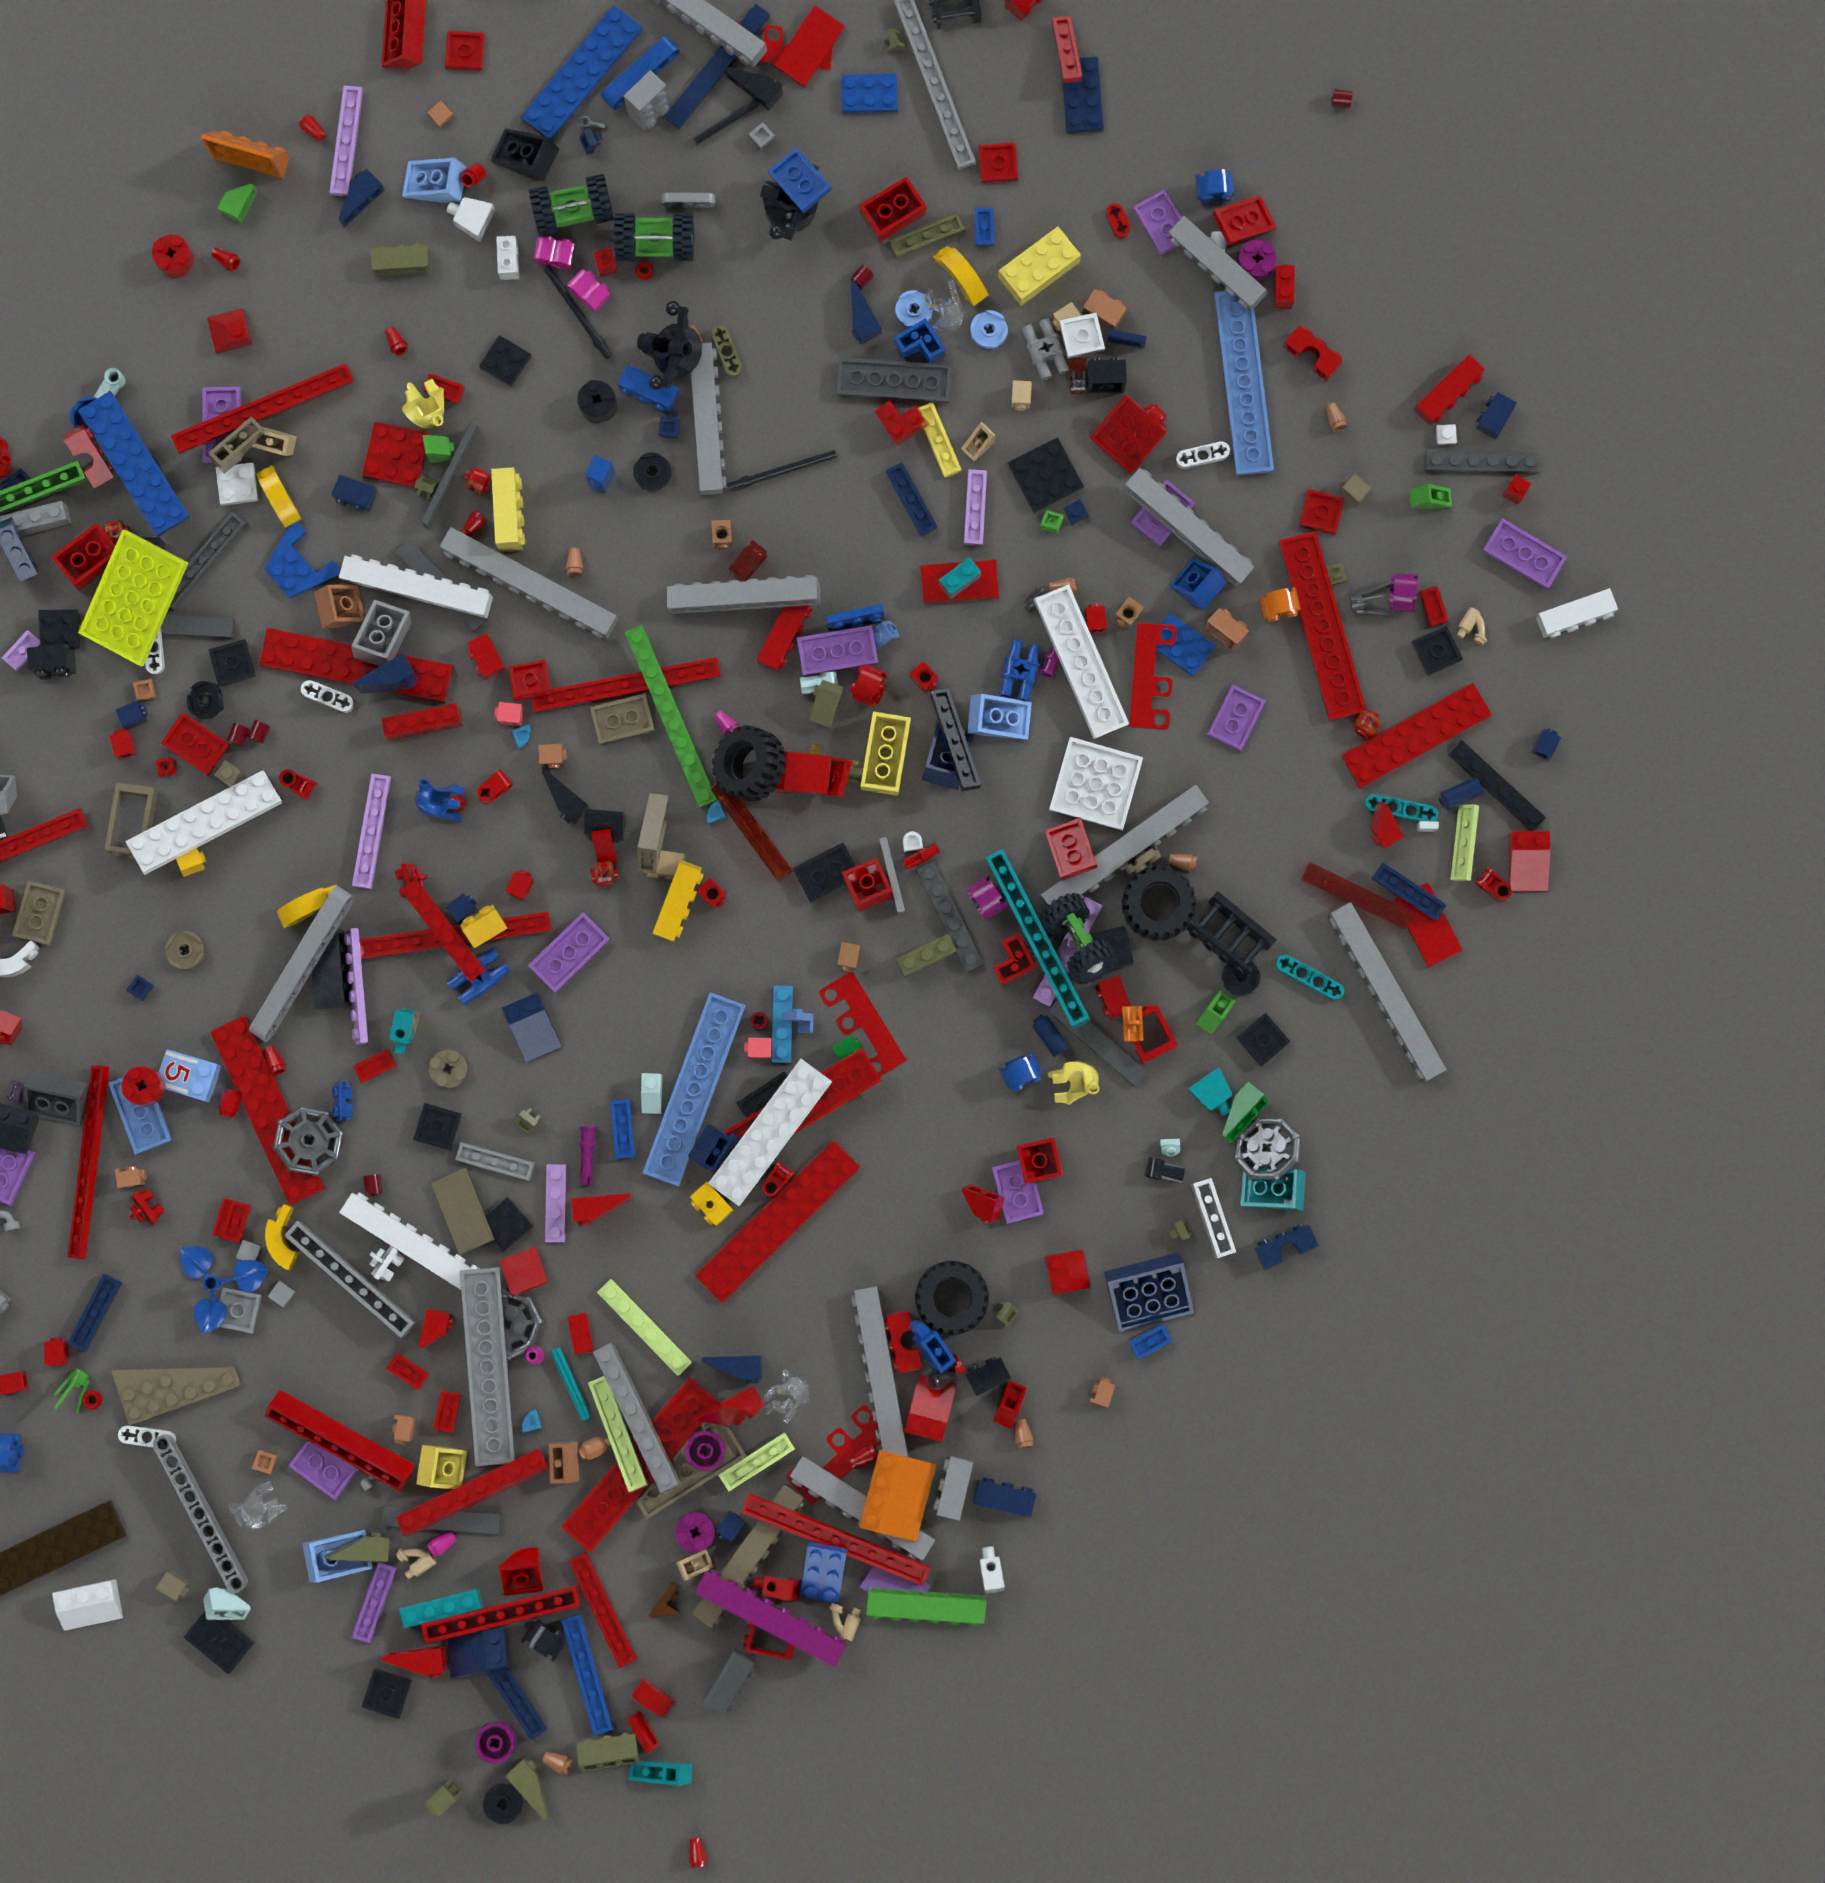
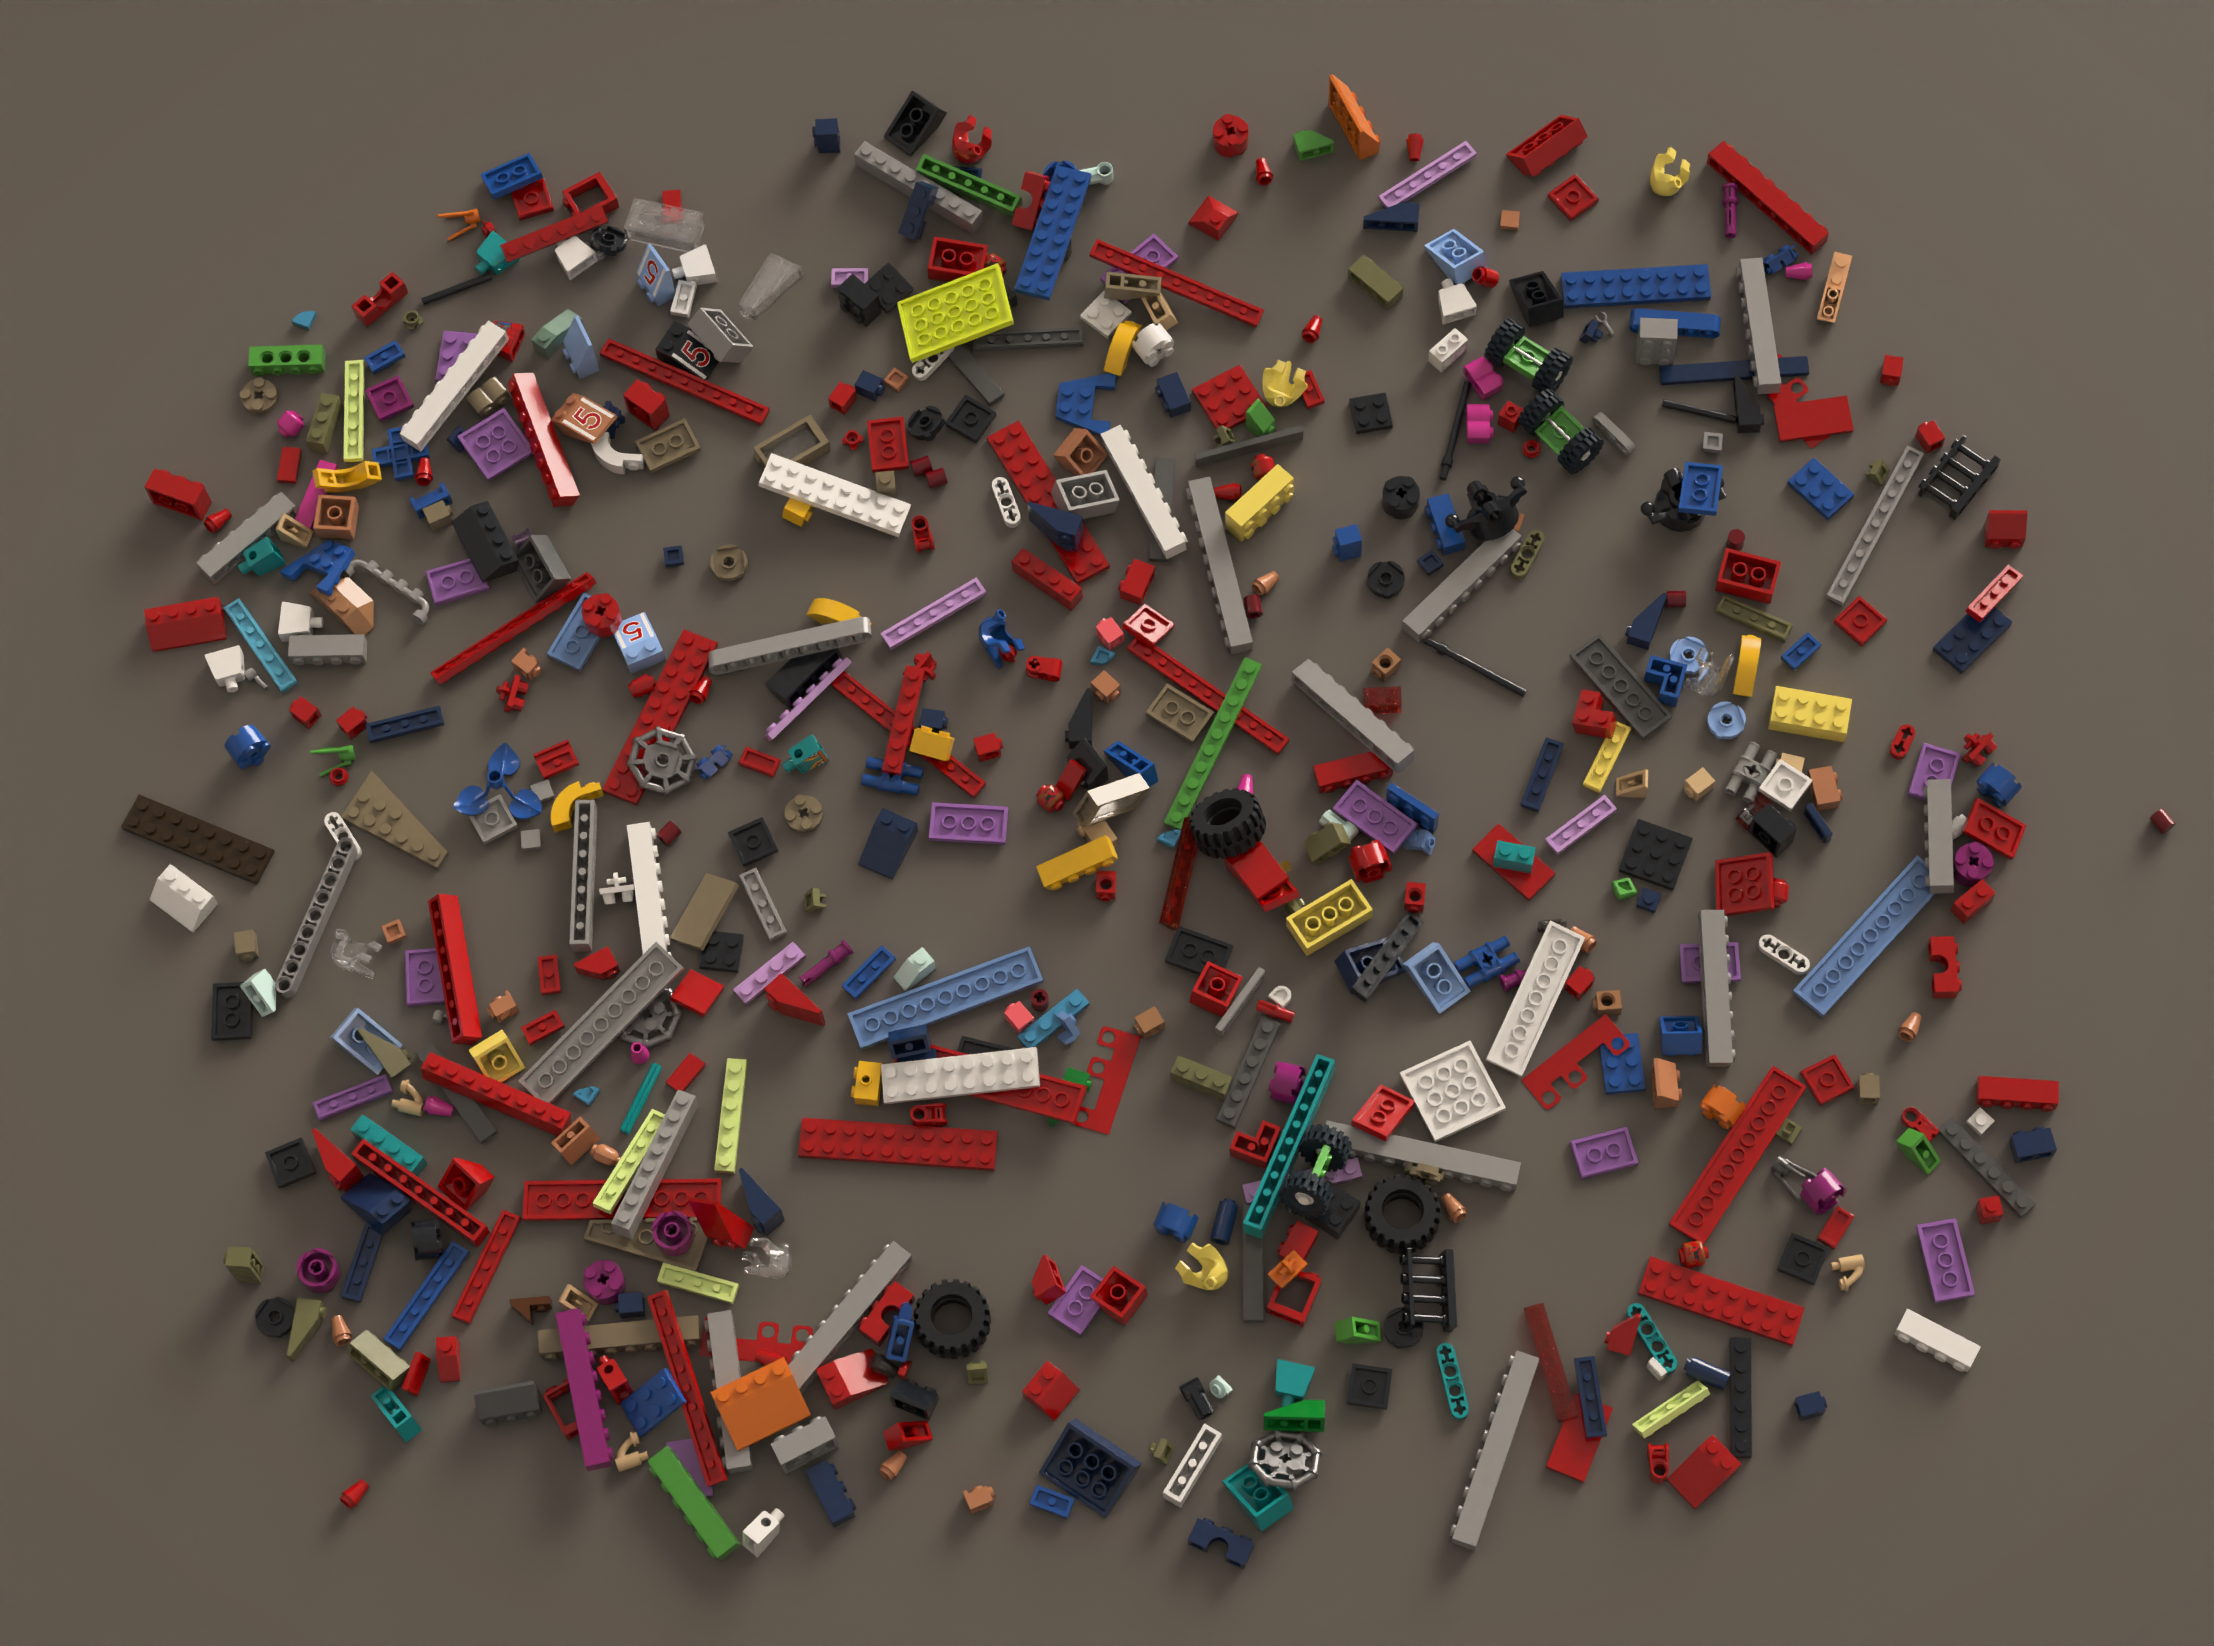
camera: 55 degrees right, 15 degrees down
(299, 471) = (1153, 344): none -> white brick
(584, 588) = (1252, 606): none -> dark red piece
(631, 790) = (1131, 762): none -> blue slope
(855, 192) = (1735, 539): none -> dark red piece
(1170, 174) = (1984, 742): none -> red hips
(1413, 478) = (1921, 1124): none -> red piece

